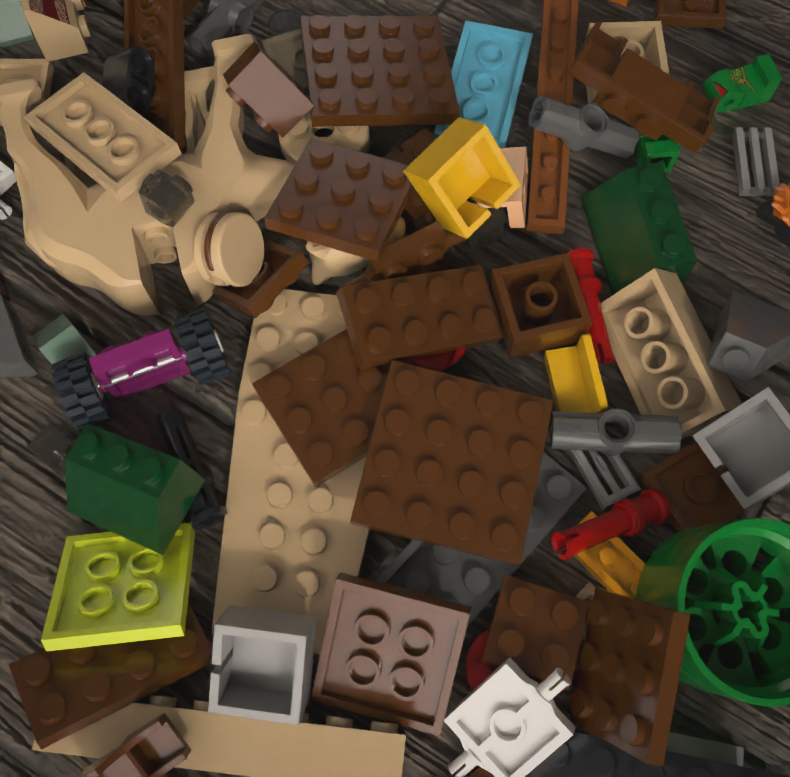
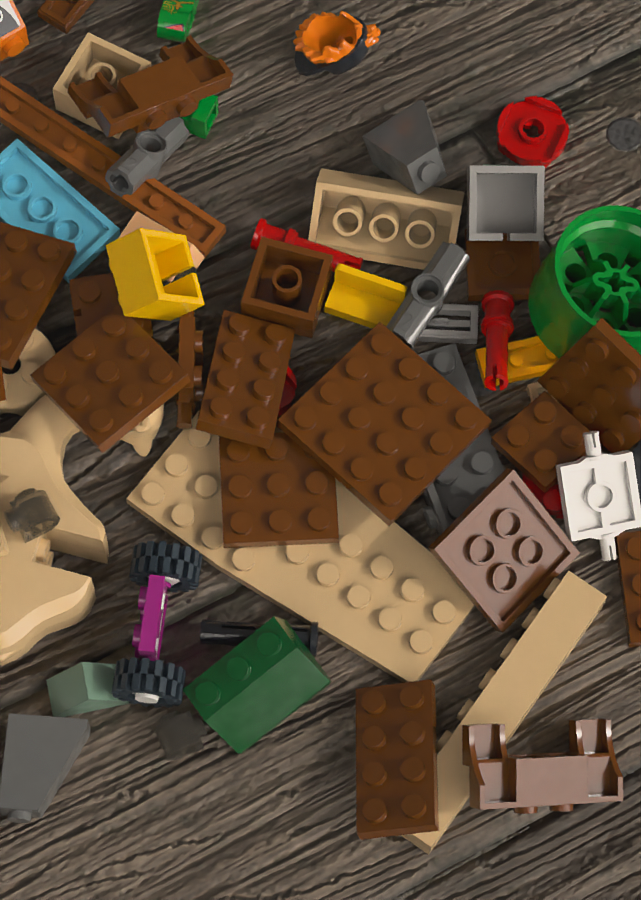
camera: 65 degrees left, 0 degrees up
(118, 591) = (342, 727): neon yellow plate -> none
(229, 249) = (96, 495): tan head -> none
(269, 664) = (462, 643): light grey piece -> none
(279, 269) = (124, 490): reddish brown plate -> none
(638, 226) = (262, 172): dark green slope -> none
(769, 161) = (258, 41): light grey tile -> none

